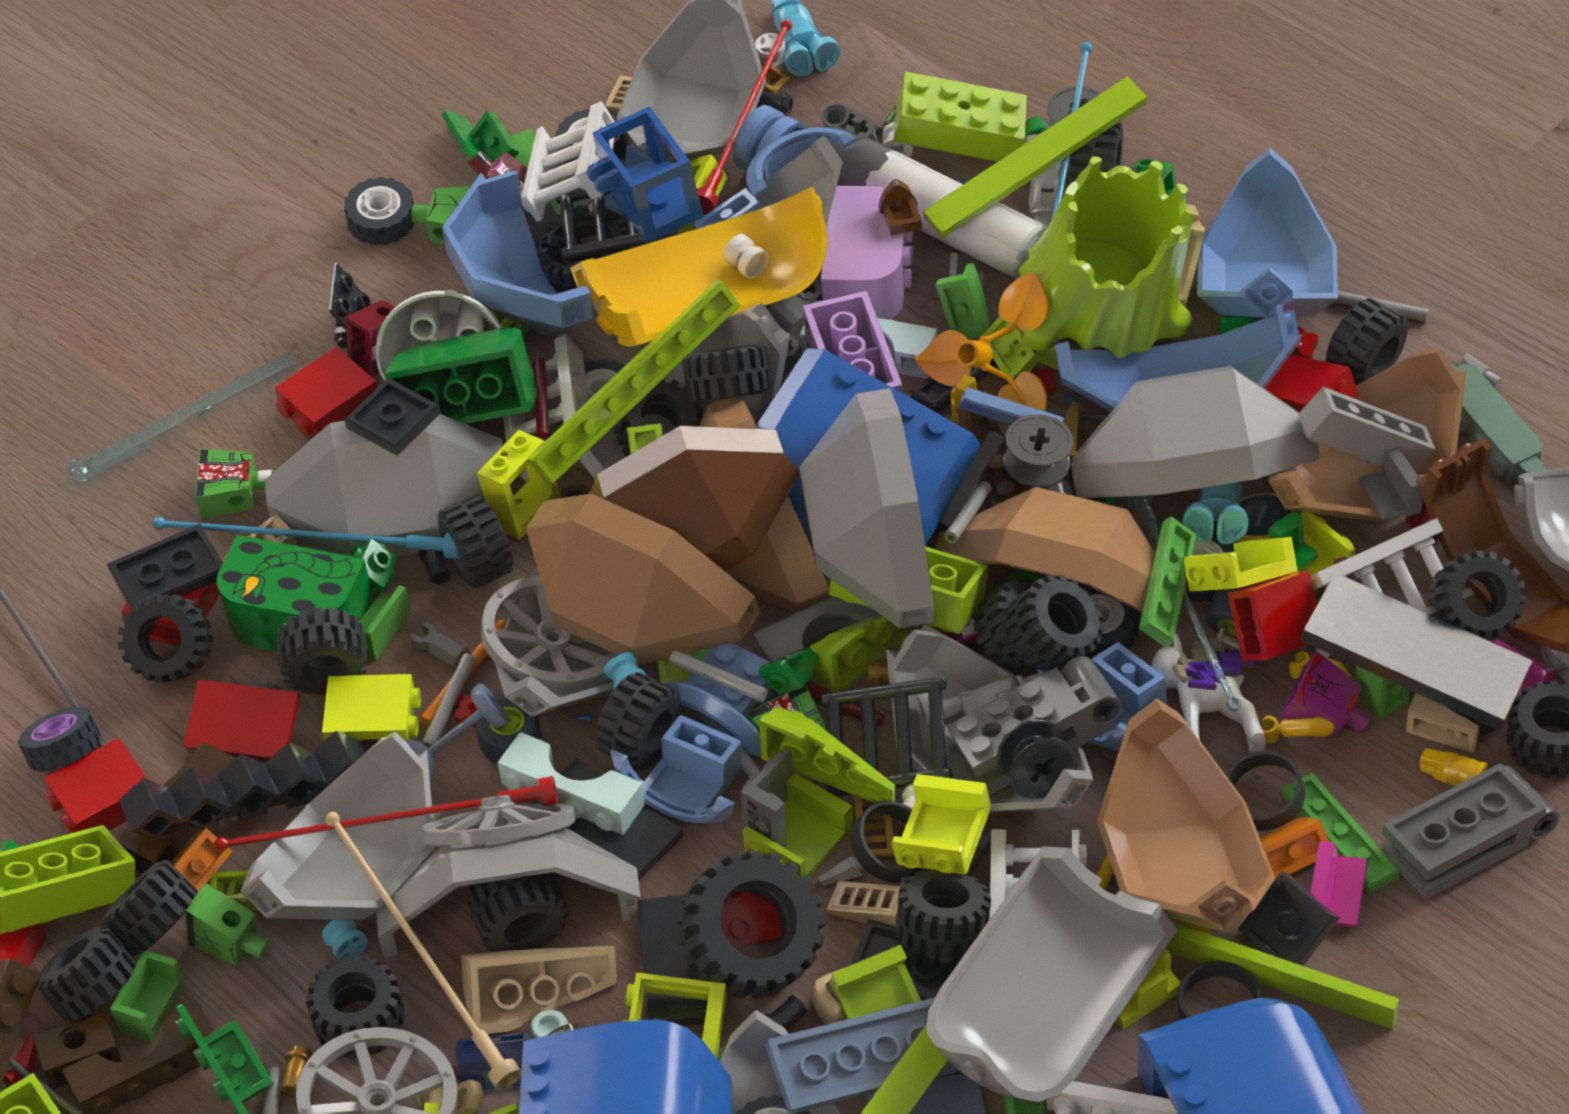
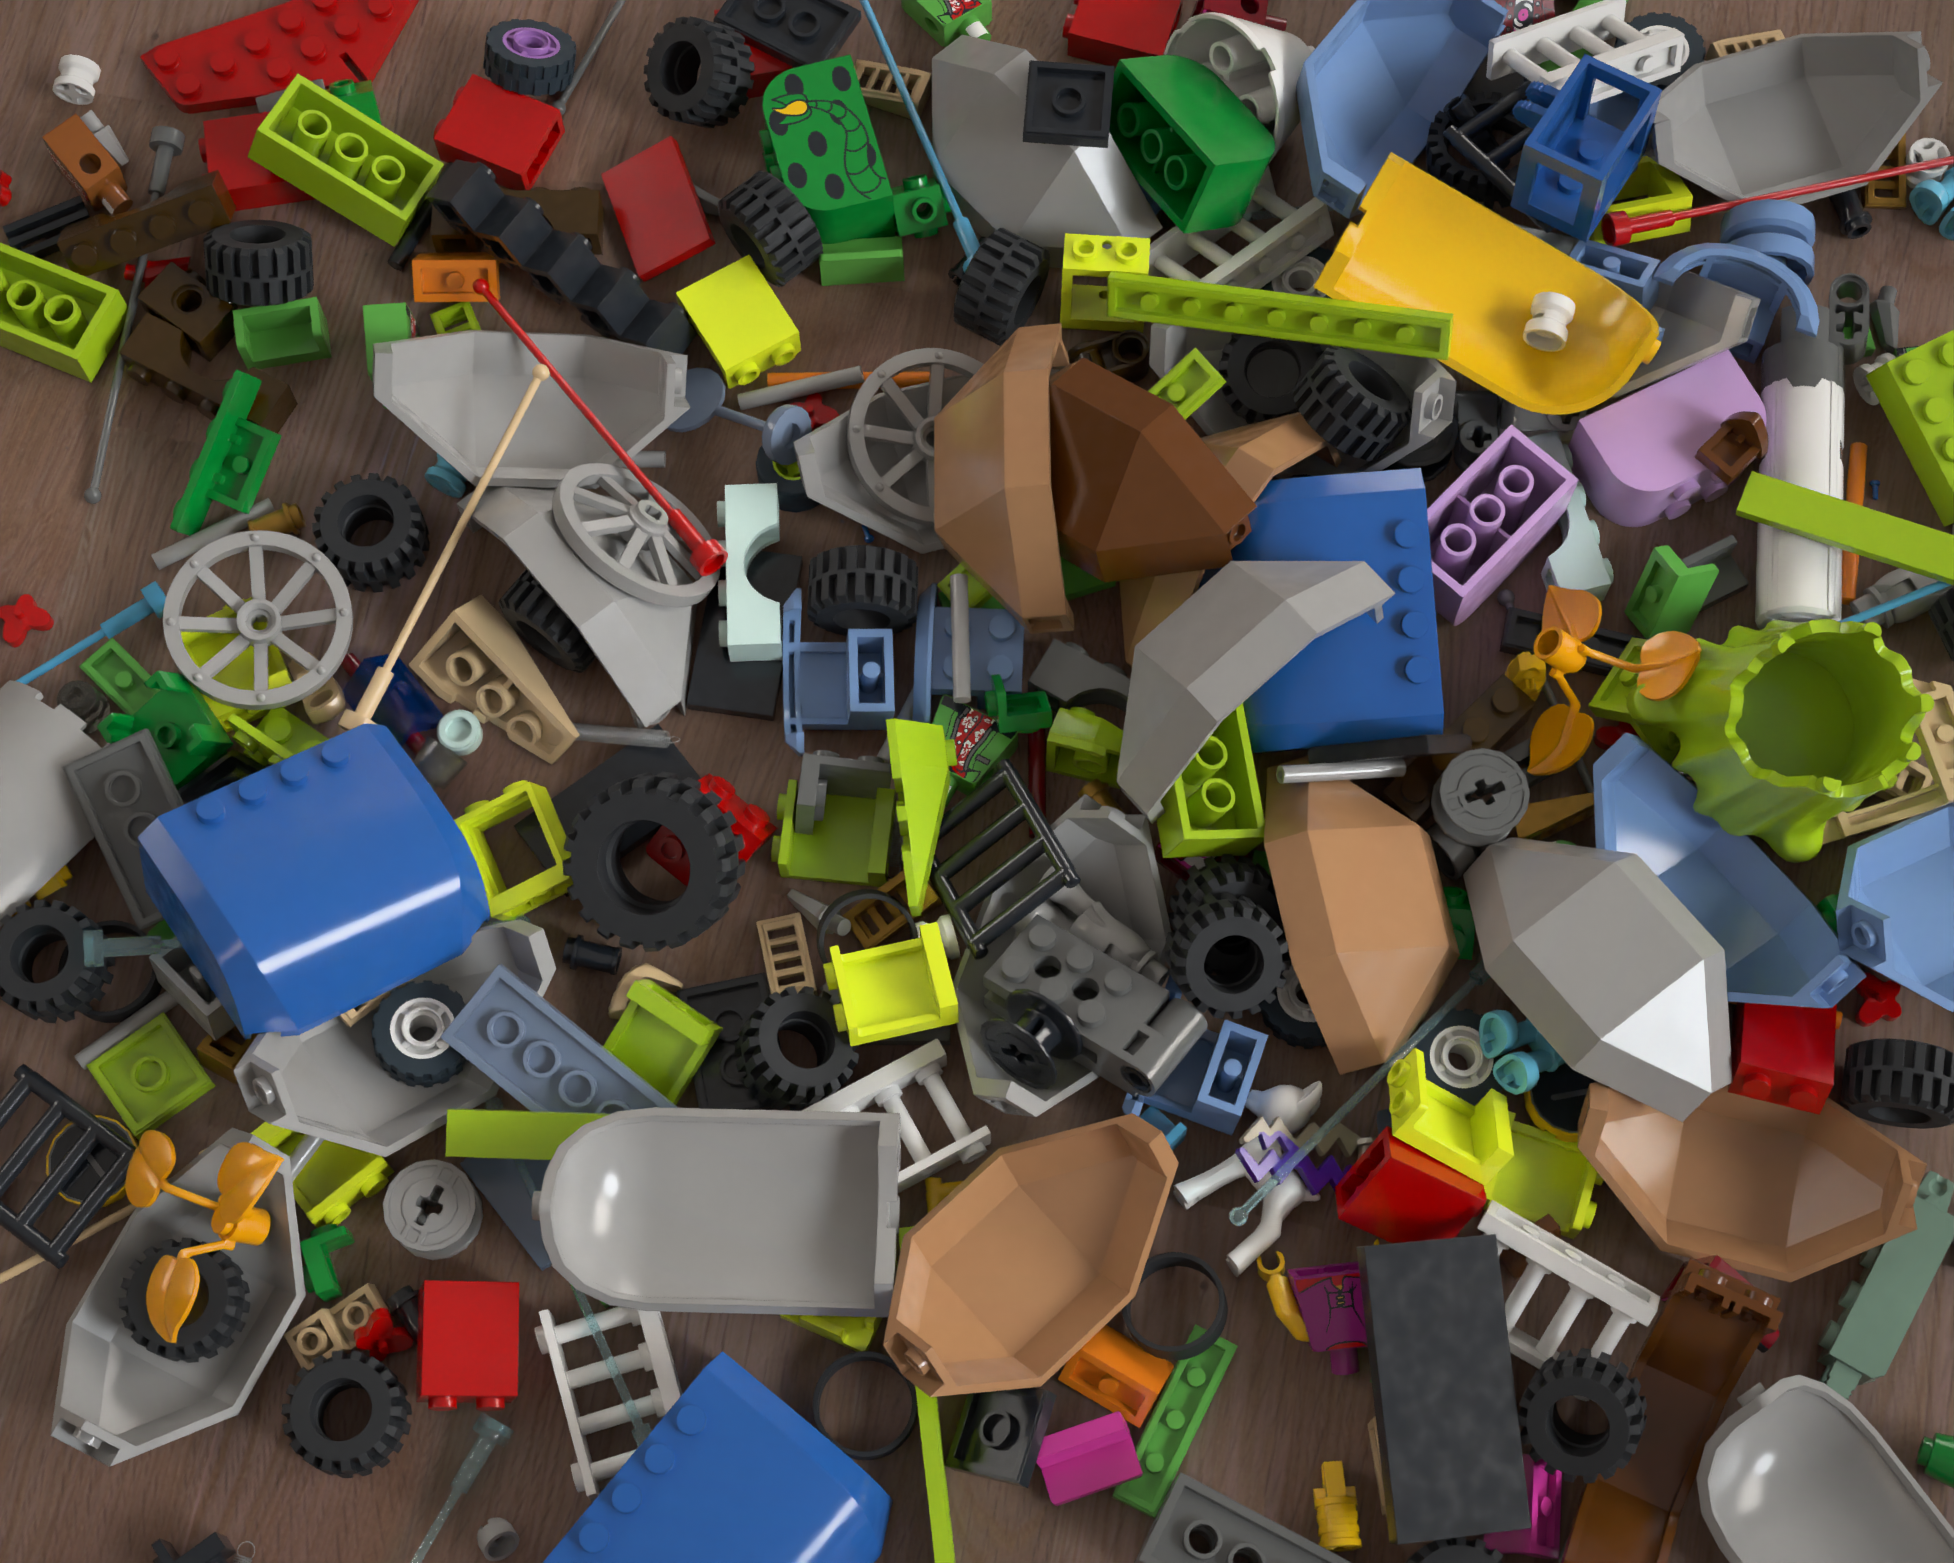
camera: 55 degrees right, 20 degrees up
(150, 907) = (360, 270): black tyre -> none
(439, 645) = (869, 337): dark grey bar -> none
(541, 401) = (1233, 234): dark red bar -> none
(621, 667) = (912, 540): medium azure wheel -> none
(635, 915) = (657, 744): none -> light grey piece
(997, 407) = (1518, 734): light blue tile -> none
(1167, 582) = (1376, 1046): bright green tile -> none
(1293, 527) = (1542, 1153): green bracket -> none
(1363, 429) = (1744, 1157): light grey brick -> none
(1394, 490) = (1692, 1227): dark grey panel -> none

